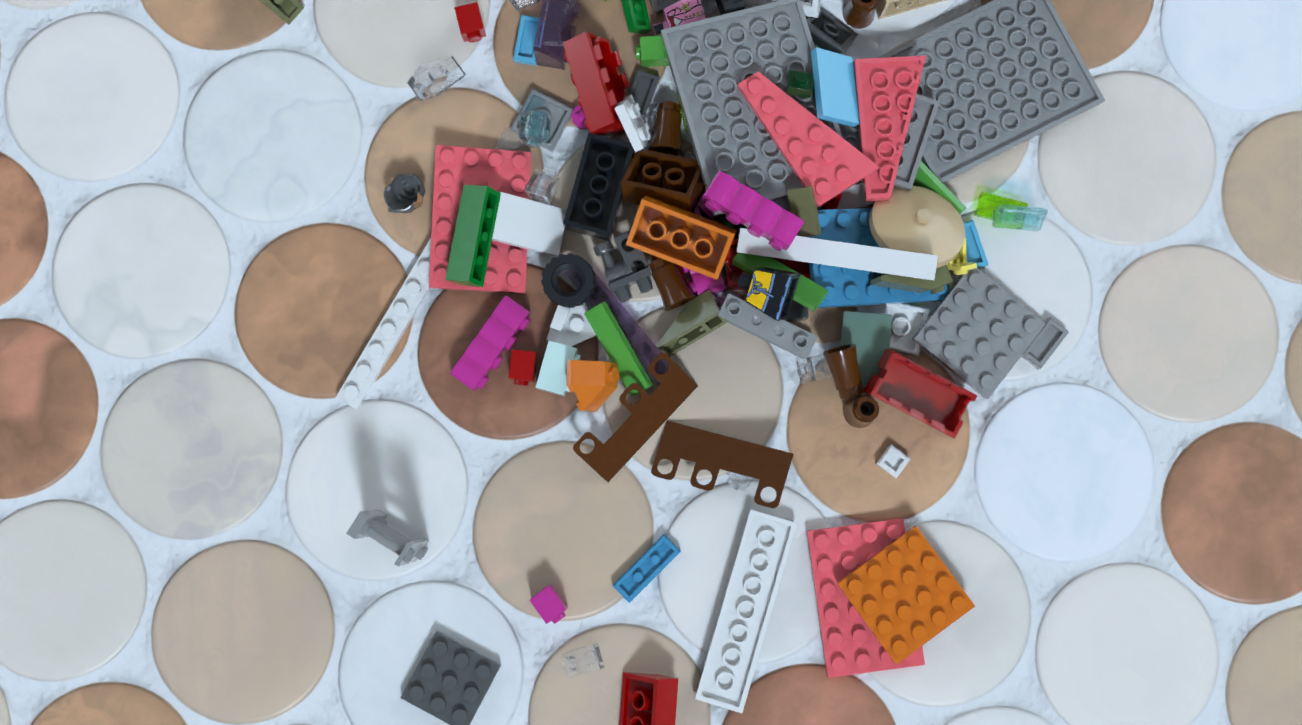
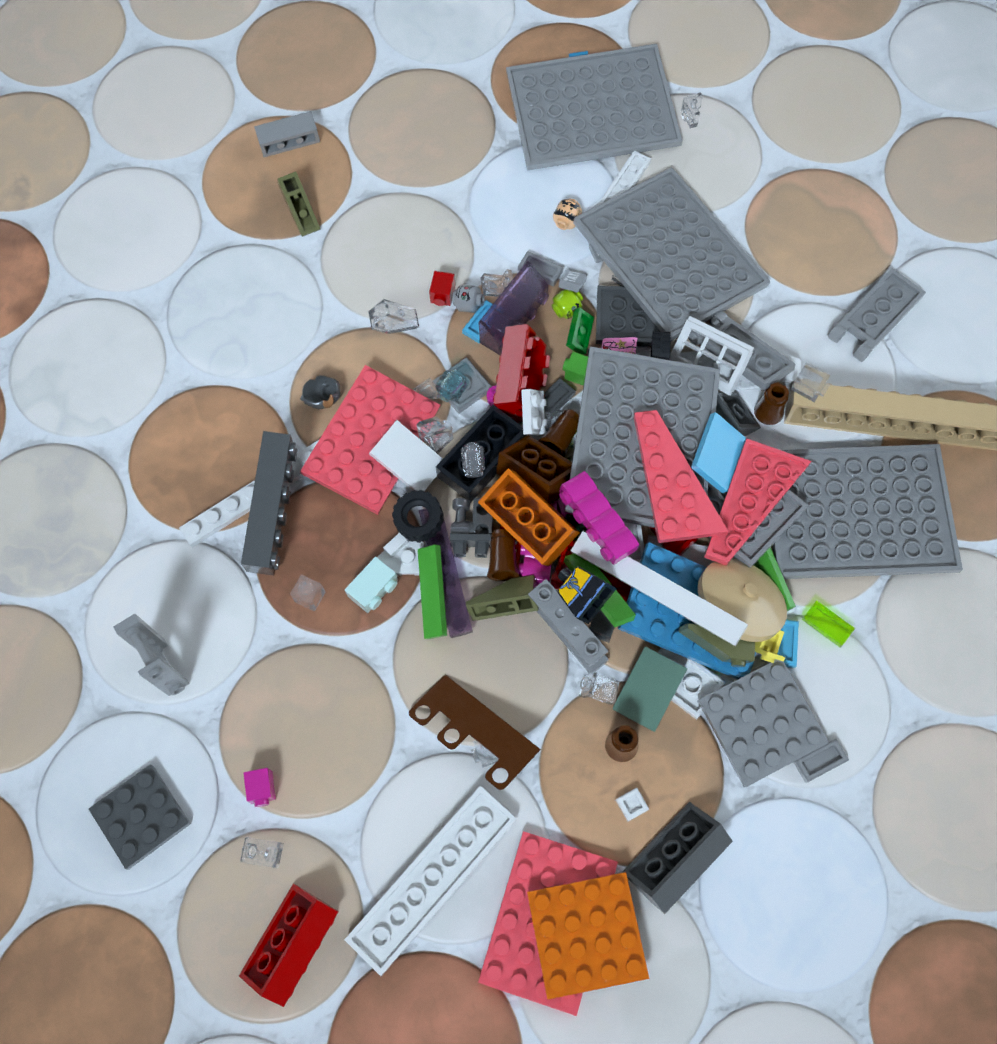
camera: 30 degrees right, 15 degrees down
(416, 334) = (268, 503): none -> dark grey brick
(473, 235) = (355, 443): green brick -> none
(490, 344) = (329, 539): dark pink brick -> none
(498, 404) = (307, 592): none -> clear brick
(503, 22) = (468, 298): none -> light grey head
(522, 367) = (343, 570): red brick -> none
(591, 382) = (394, 608): orange slope -> none
(598, 201) = (473, 460): none -> clear brick
(645, 419) = (423, 665): reddish brown piece -> none
(646, 568) = (362, 796): dark azure tile -> none
(799, 84) = (688, 434): dark green plate -> none
(804, 206) = (646, 533): olive tile -> none
(845, 370) = (622, 698): reddish brown plant -> none
(919, 393) = (683, 750): red piece -> none
(953, 489) = (678, 857): none -> dark grey slope
(1019, 217) = (841, 635): clear light blue slope -> none

